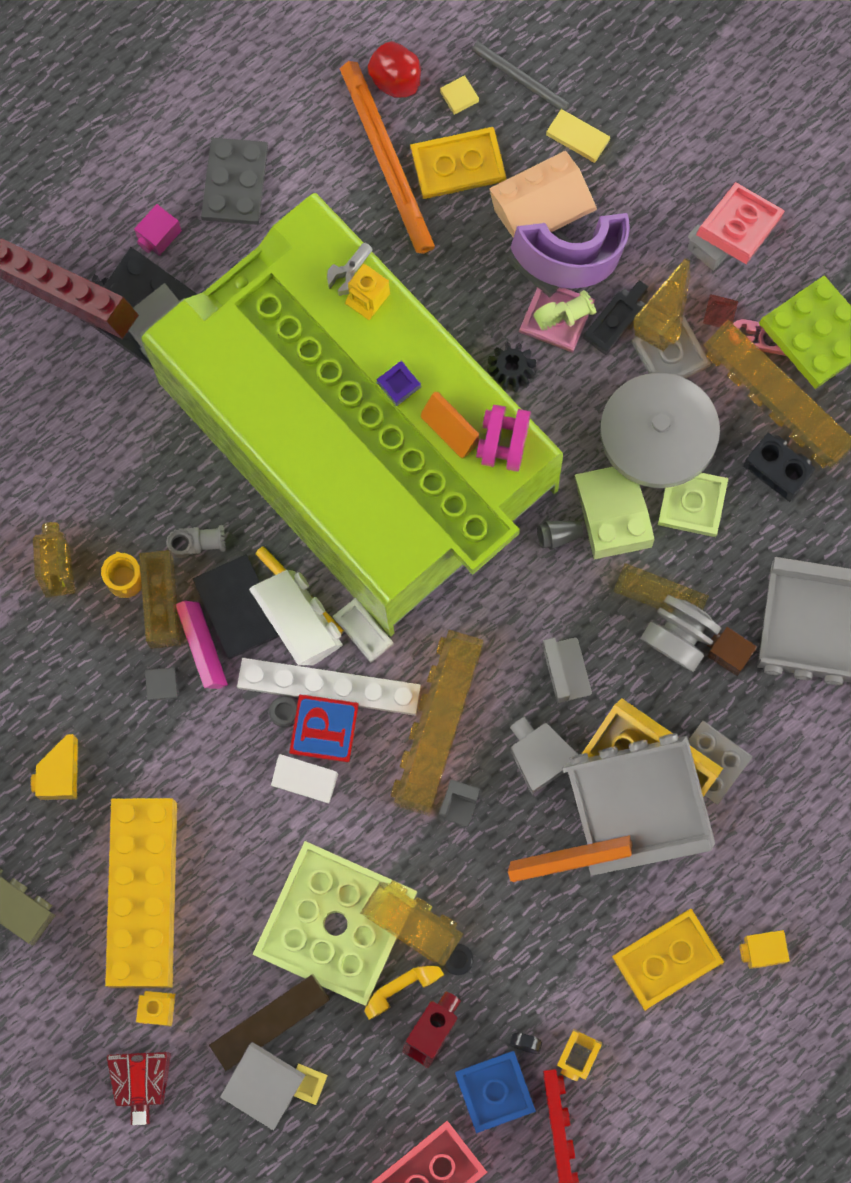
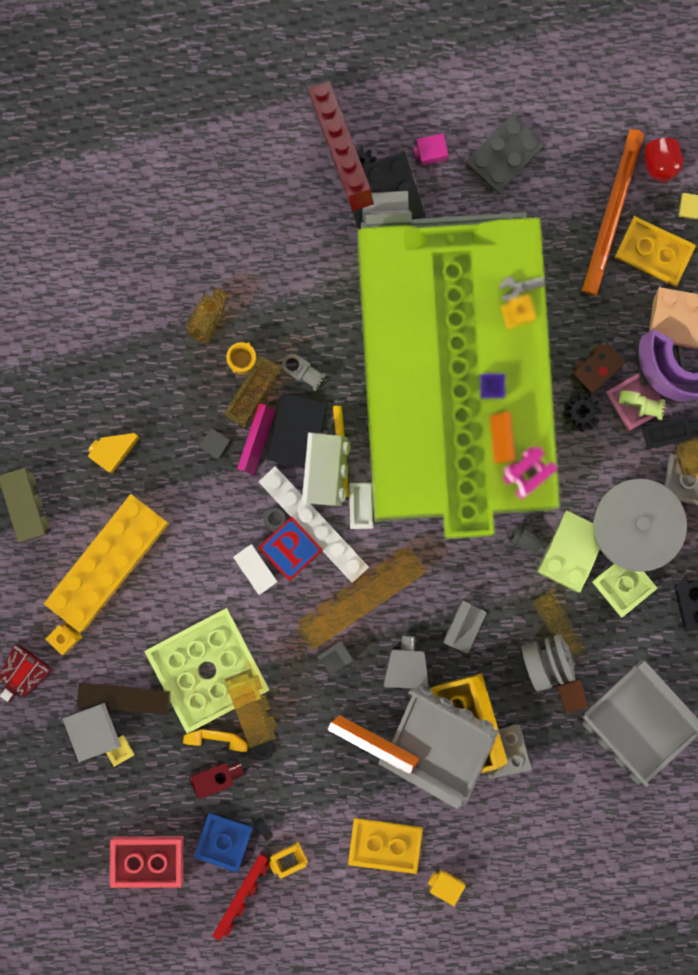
camera: 35 degrees right, 10 degrees up
(493, 312) = (598, 368): none -> reddish brown brick

